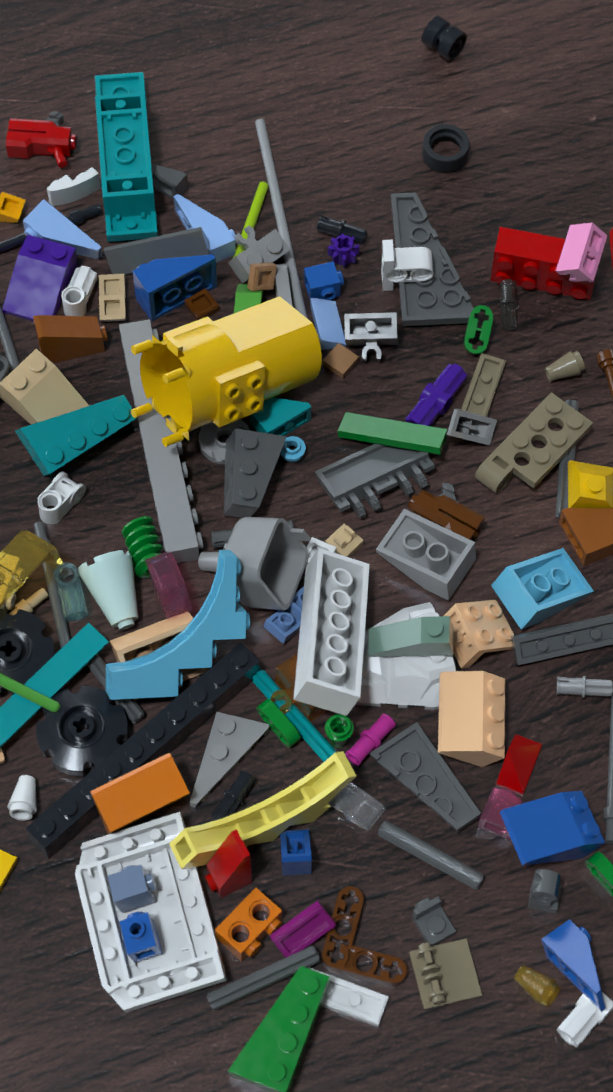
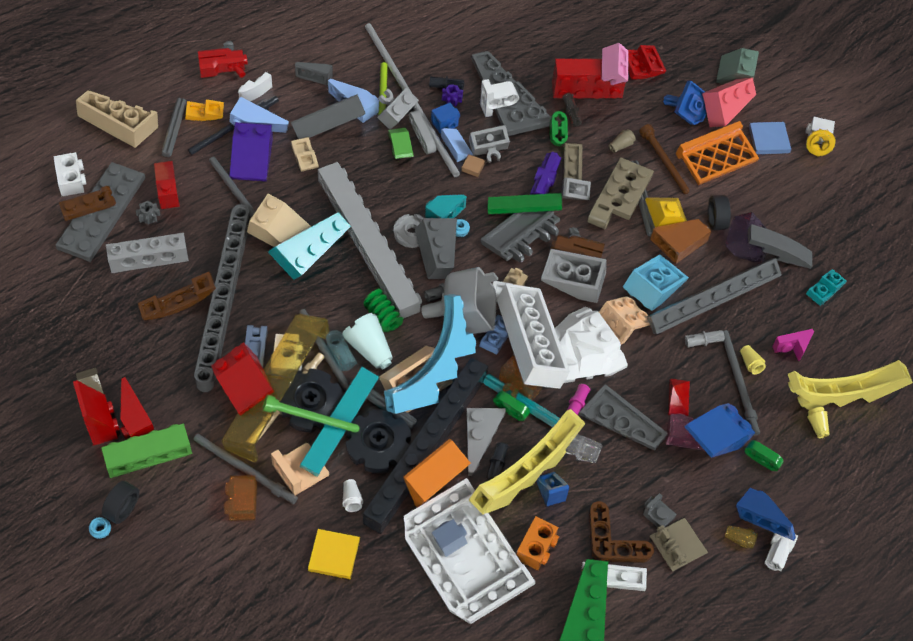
camera: 20 degrees left, 5 degrees down
(62, 494) = (311, 291): white piece -> none
(69, 336) = (285, 183): dark orange slope -> none
(78, 292) = (280, 155): white piece -> none
(125, 157) = (288, 60): teal bracket -> none
(140, 936) = (467, 568): blue brick -> none
(168, 584) = (408, 330): clear pink slope -> none
(169, 281) = (345, 135): blue slope -> none
(201, 305) = (367, 148): reddish brown tile -> none
(226, 366) = (405, 179): yellow piece -> none
(229, 866) = (514, 505): red slope -> none
(261, 276) = (405, 120): medium nougat tile -> none
(262, 978) = (558, 577): dark grey axle -> none
(303, 929) = (576, 537): magenta tile -> none
(338, 730) = (556, 399): green cone -> none
(412, 638) = (588, 327): sand green slope -> none
(431, 855) = (642, 469): dark grey axle -> none
(445, 132) = (494, 29): black tyre -> none
(472, 716) = (641, 372): light nougat slope -> none
(545, 891) = (726, 473): dark grey leg -> none

